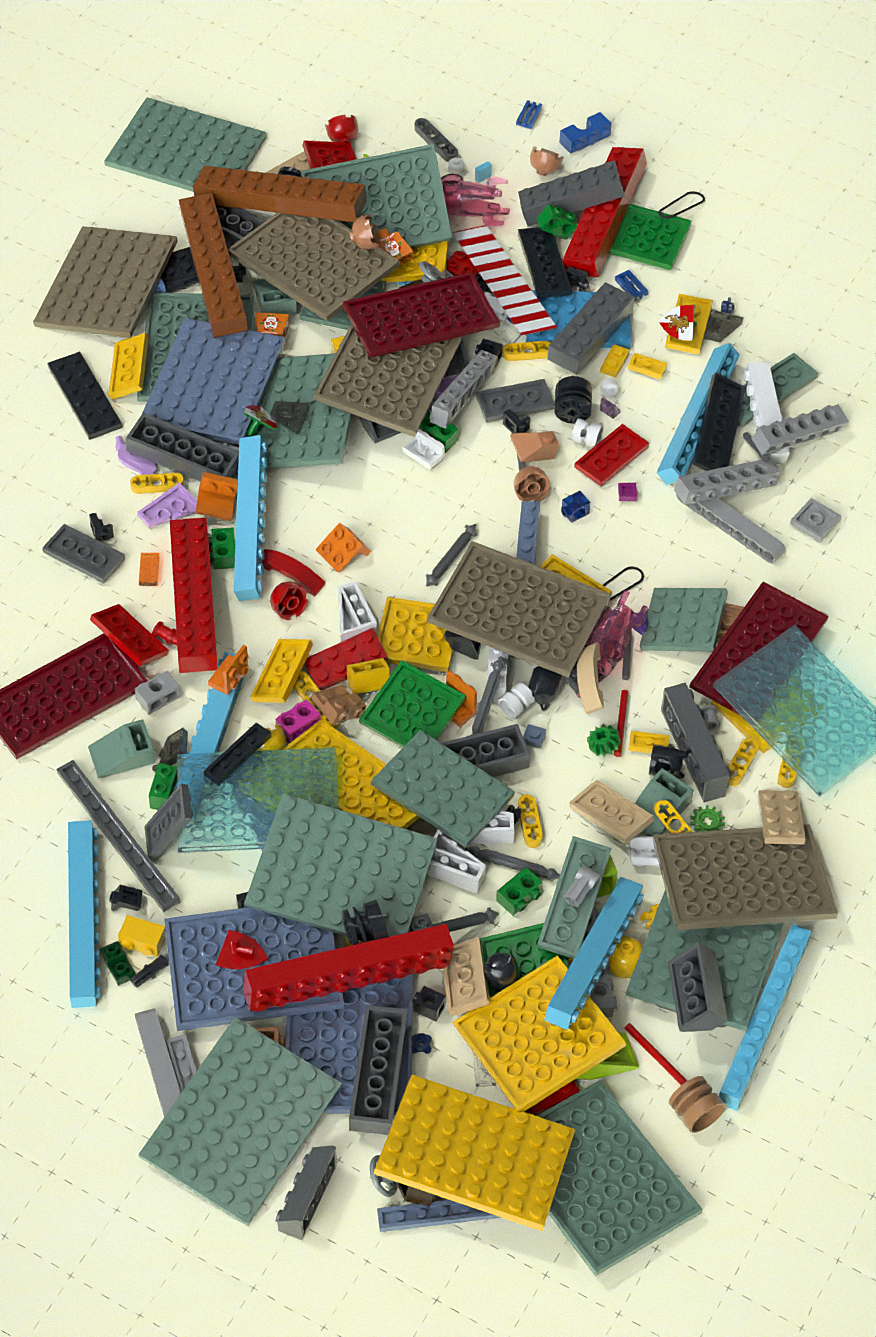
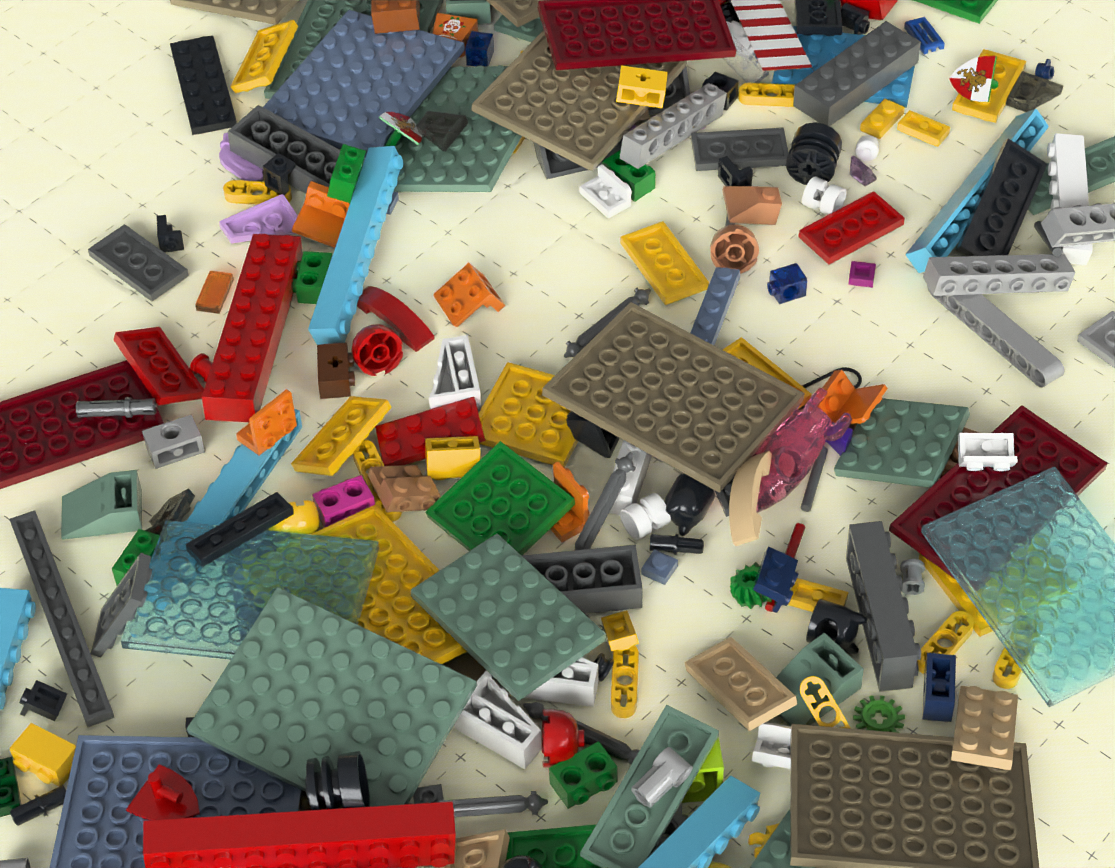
camera: 15 degrees right, 5 degrees down
(109, 673) = (116, 407): none -> dark grey pin
(173, 467) = (276, 173): none -> black bracket
(230, 463) = (346, 173): none -> green brick
(260, 620) = (334, 370): none -> reddish brown brick
(295, 339) = (479, 49): none -> clear blue brick
(437, 363) = (641, 86): none -> yellow brick
(481, 501) = (664, 263): none -> yellow plate
(498, 868) = (560, 736): none -> red cylinder
(521, 786) = (619, 631): none -> yellow plate
(541, 718) = (676, 544): none -> black axle
(620, 733) = (776, 577): none -> dark blue bracket
(640, 593) = (844, 398): none -> orange bracket
(745, 794) = (939, 687): none -> dark blue brick
(746, 619) = (986, 450): none -> white bracket

